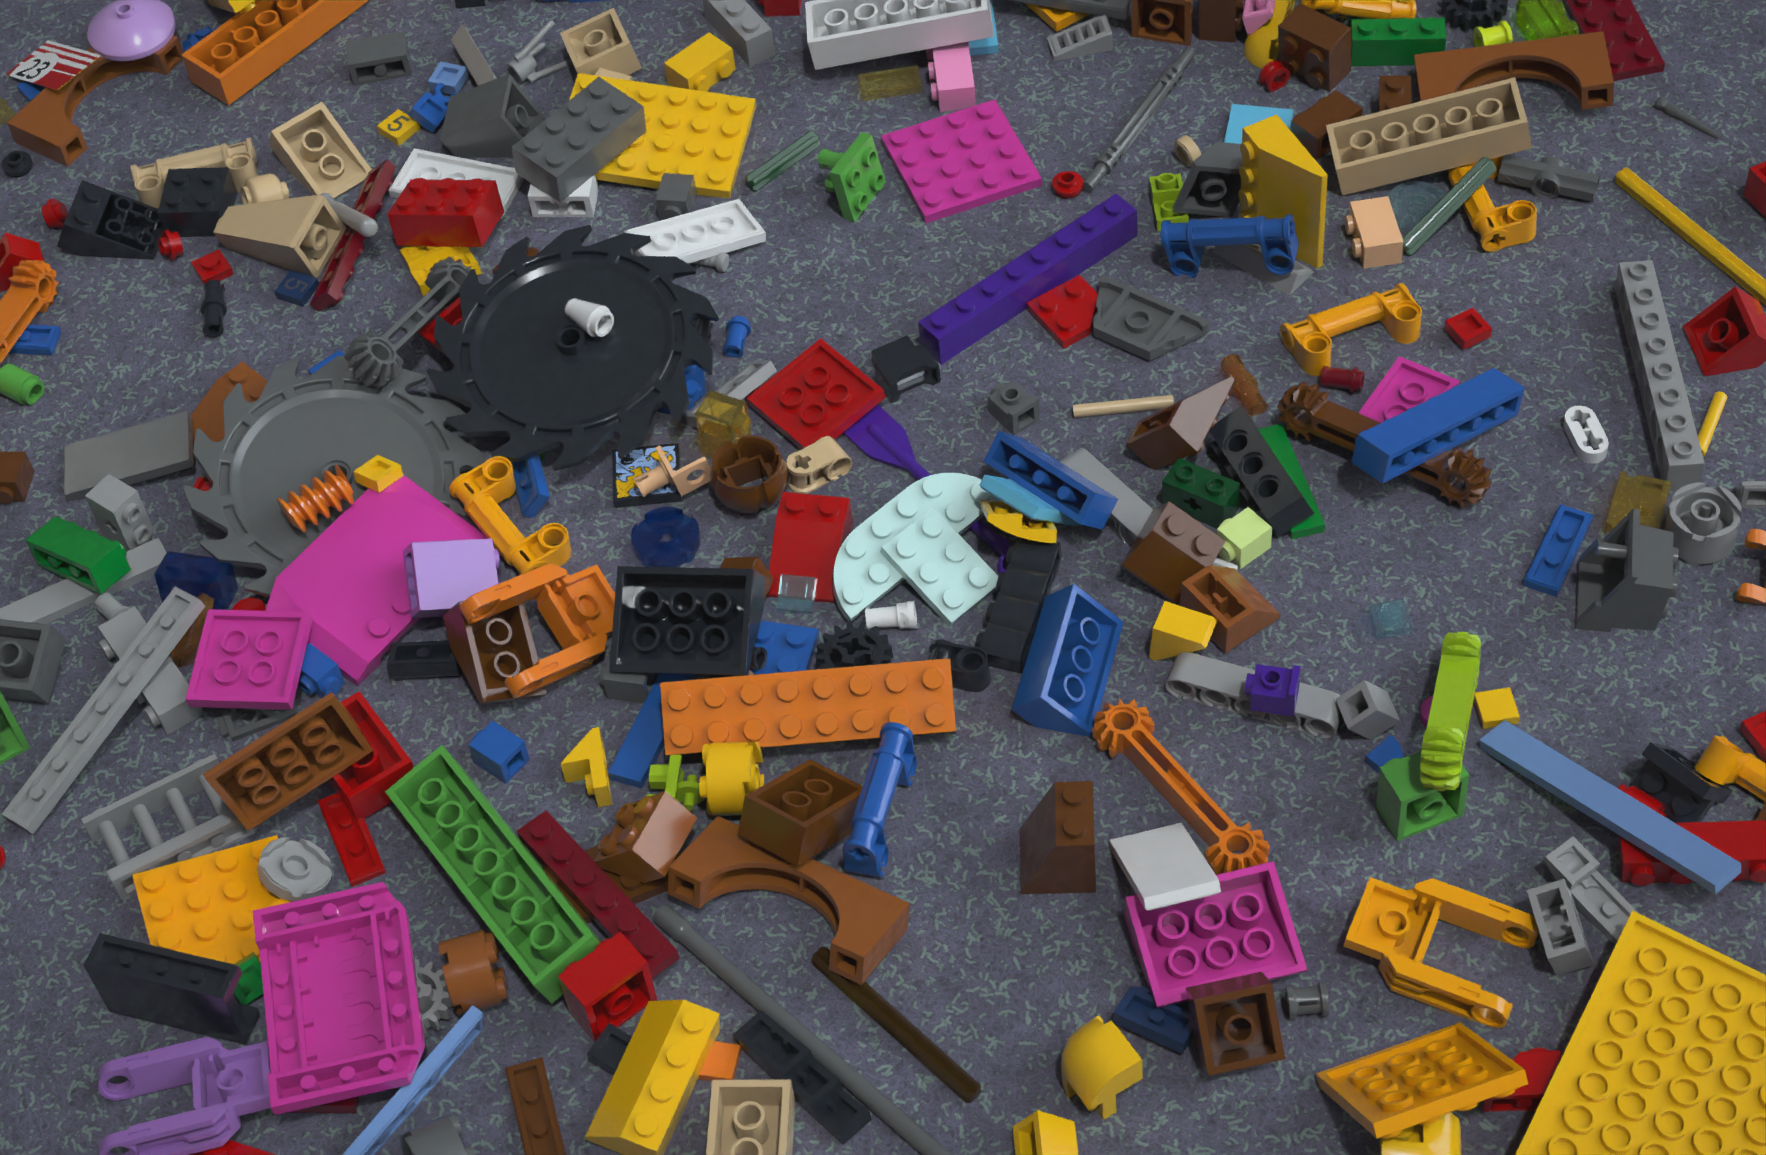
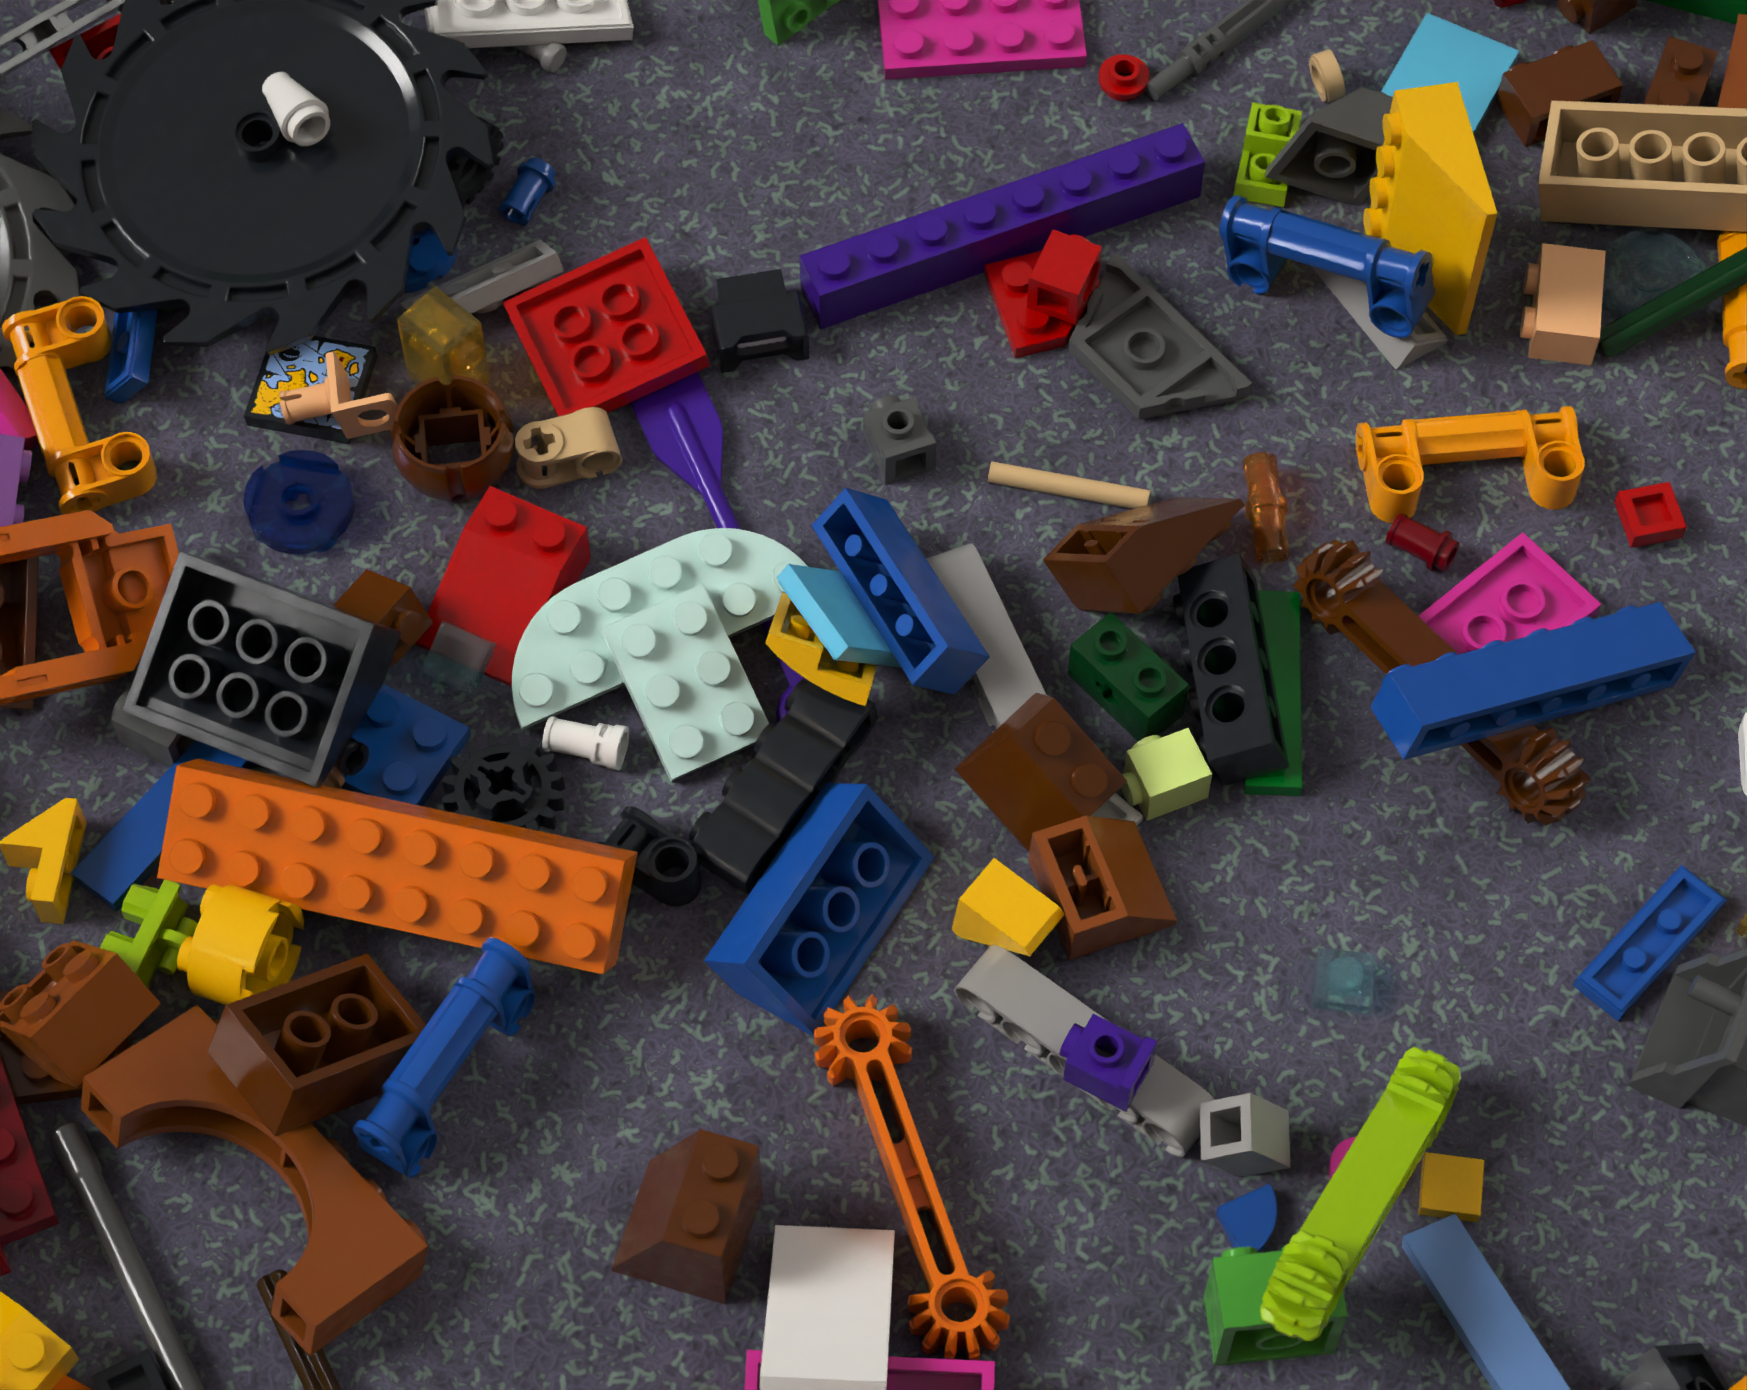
camera: 10 degrees right, 10 degrees up
(1078, 292) = (1064, 276): none -> red brick

